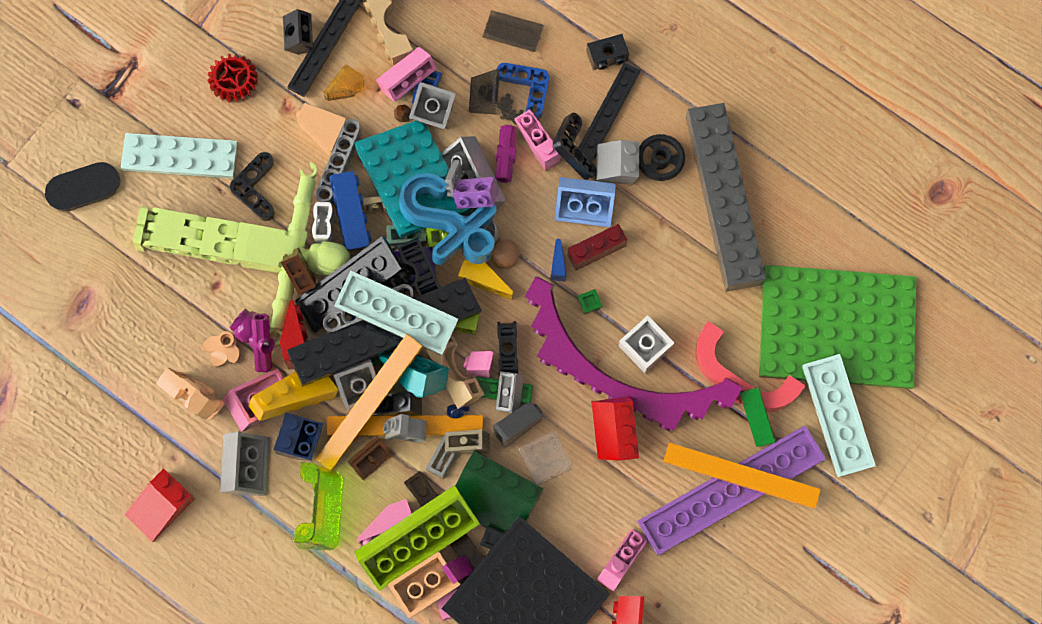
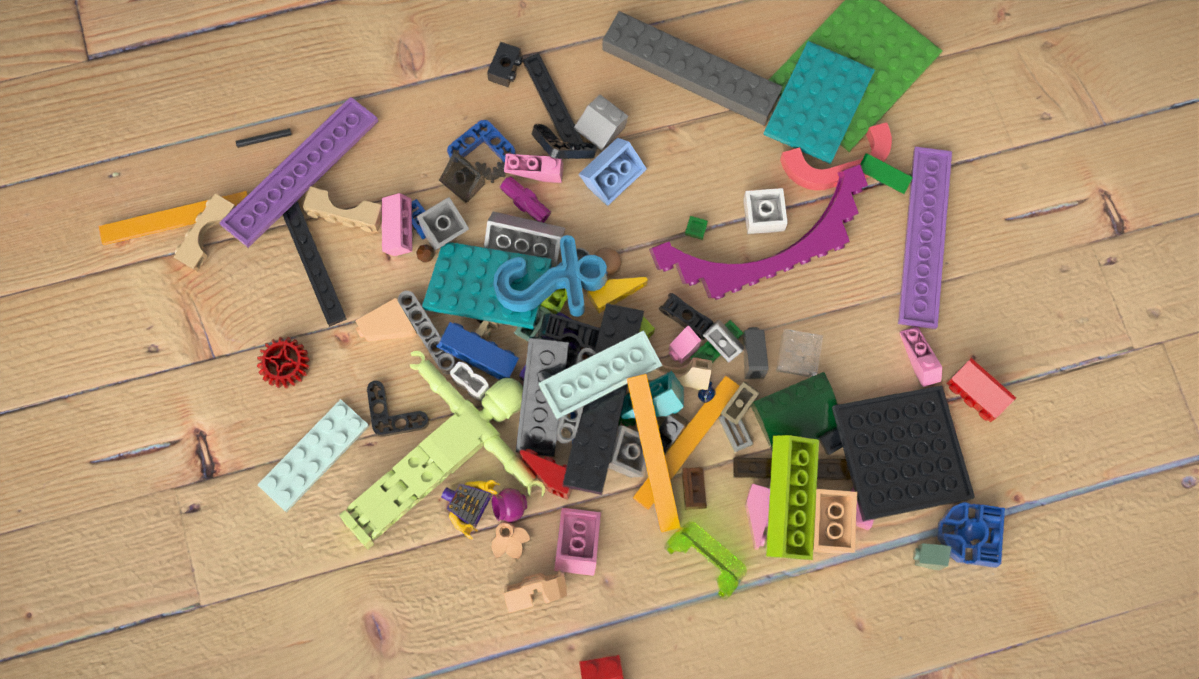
camera: 50 degrees left, 0 degrees up
(82, 186) = (274, 555): black tile -> none
(225, 296) = (468, 504): none -> torso
(244, 464) = (623, 593): light grey slope -> none
(261, 342) = (534, 502): magenta piece -> none
(290, 395) = (597, 512): yellow wedge -> none
(297, 31) = (288, 281): black brick -> none
(298, 437) = (635, 532): dark blue slope -> none
(299, 271) = (498, 428): reddish brown hinge -> none
(344, 84) = (365, 278): clear yellow slope -> none
(405, 429) = (694, 442): light grey pin -> none
(454, 174) = (519, 250): light grey tile -> none
(458, 569) = (843, 483): magenta slope -> none
(475, 192) = (546, 242): medium lavender brick -> none
(513, 31) = (427, 120): clear smoke piece -> none
(558, 270) = (649, 229): blue slope -> none
(597, 247) = (657, 189): dark red brick -> none
(615, 429) = (816, 282): red slope -> none
(655, 143) = (623, 83): black wheel -> none
(741, 475) = (921, 220): light orange tile -> none
(779, 318) = (819, 102): none -> teal plate
(838, 415) = (926, 117): light aqua plate -> none

